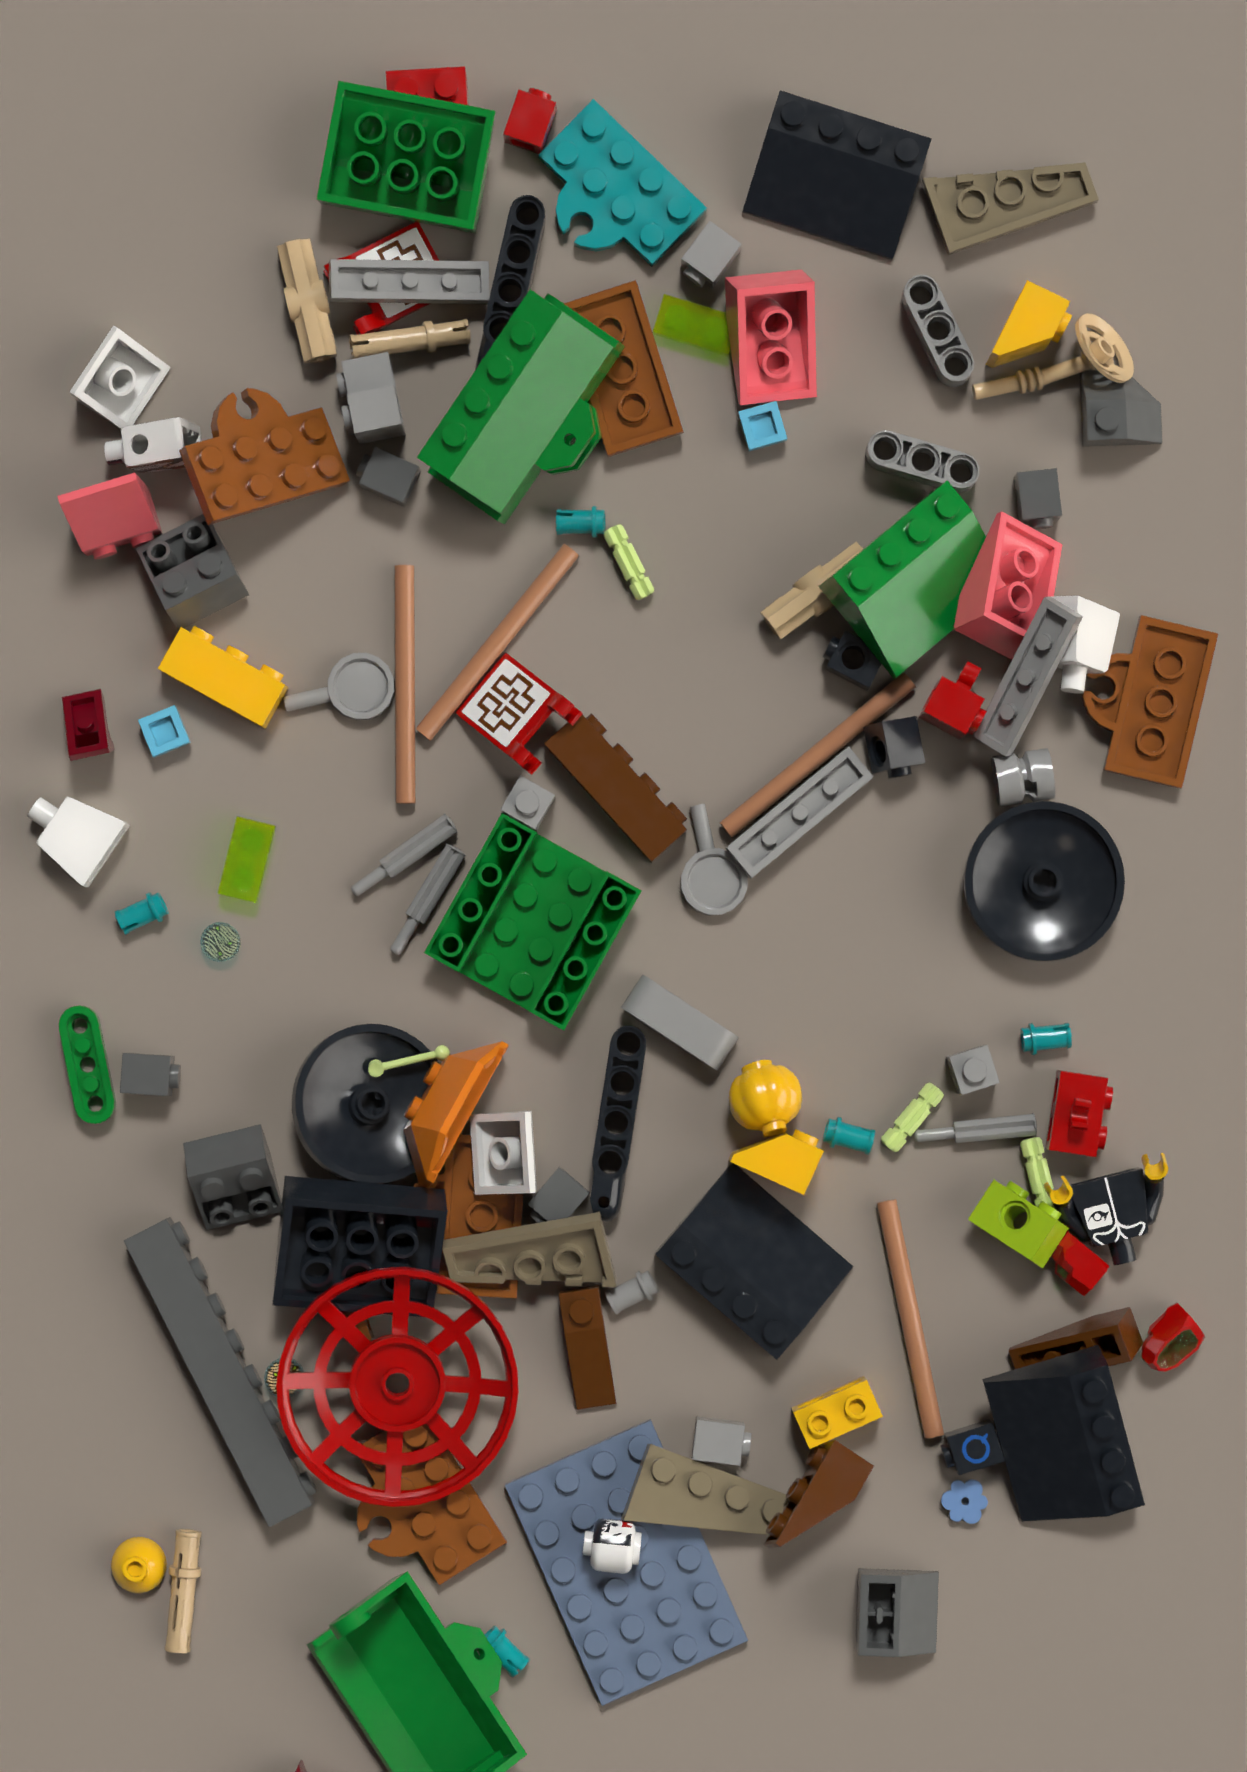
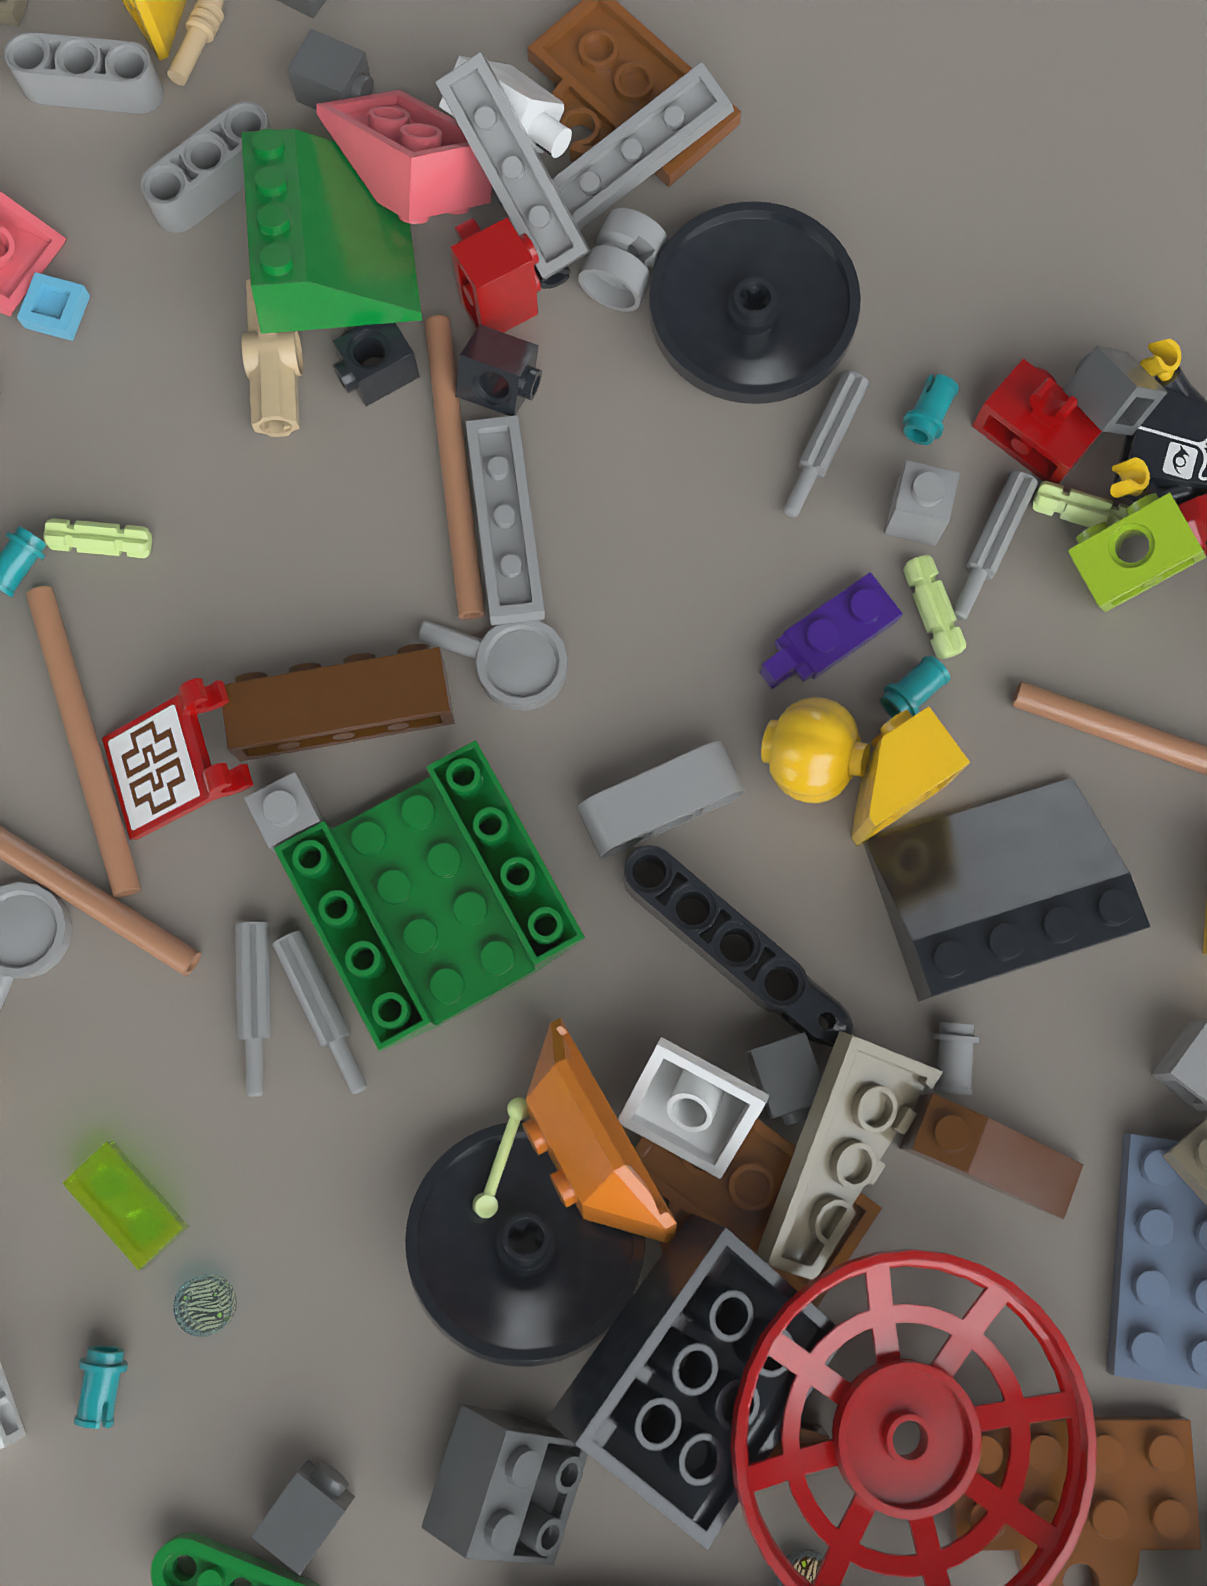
camera: 60 degrees left, 10 degrees down
(855, 1063) = (832, 632): none -> dark purple hinge
(985, 982) = (827, 436): none -> light grey axle
(1104, 740) = (642, 145): none -> light grey plate
(1115, 1148) = (1114, 390): none -> dark grey brick

